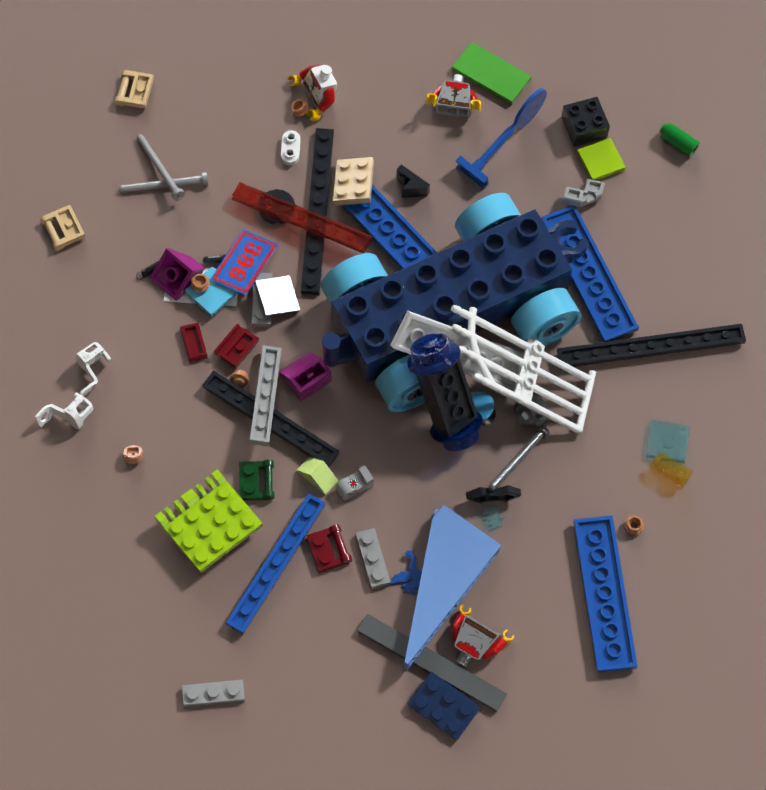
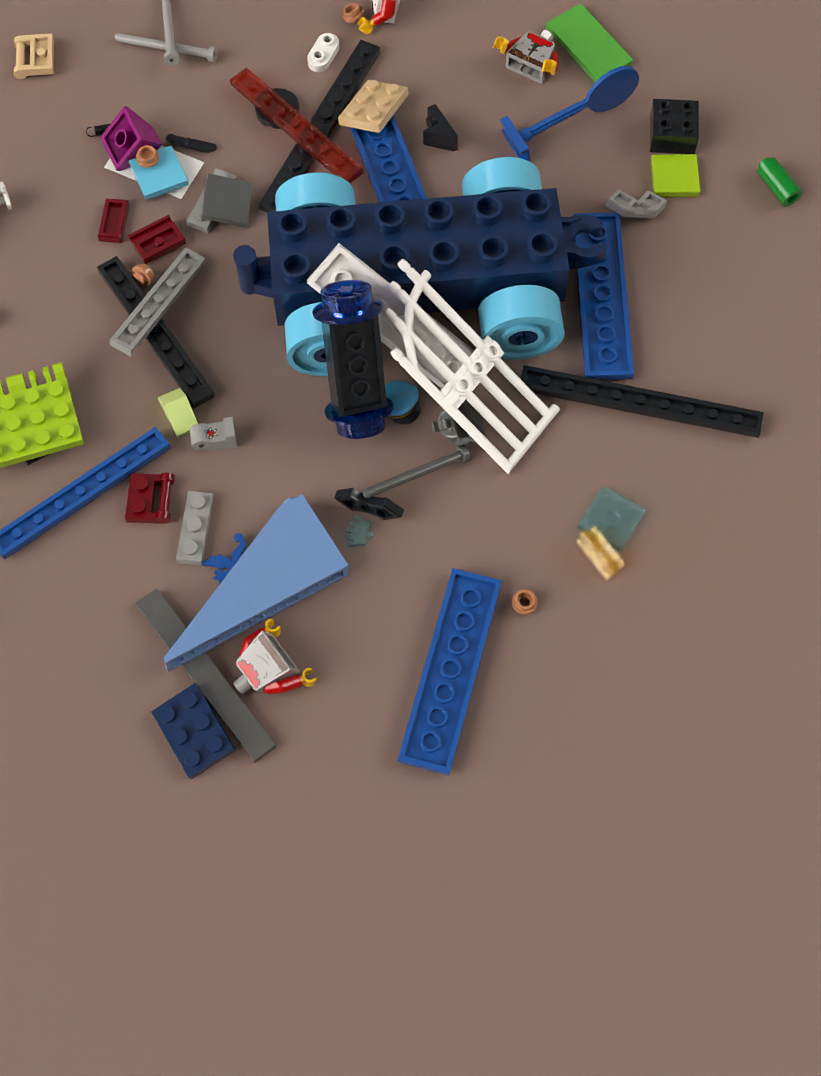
camera: 25 degrees right, 0 degrees up
(244, 262) = (210, 153): sticker -> none
(250, 480) = (100, 389): dark green plate -> none
(306, 375) = (217, 298): magenta slope -> none

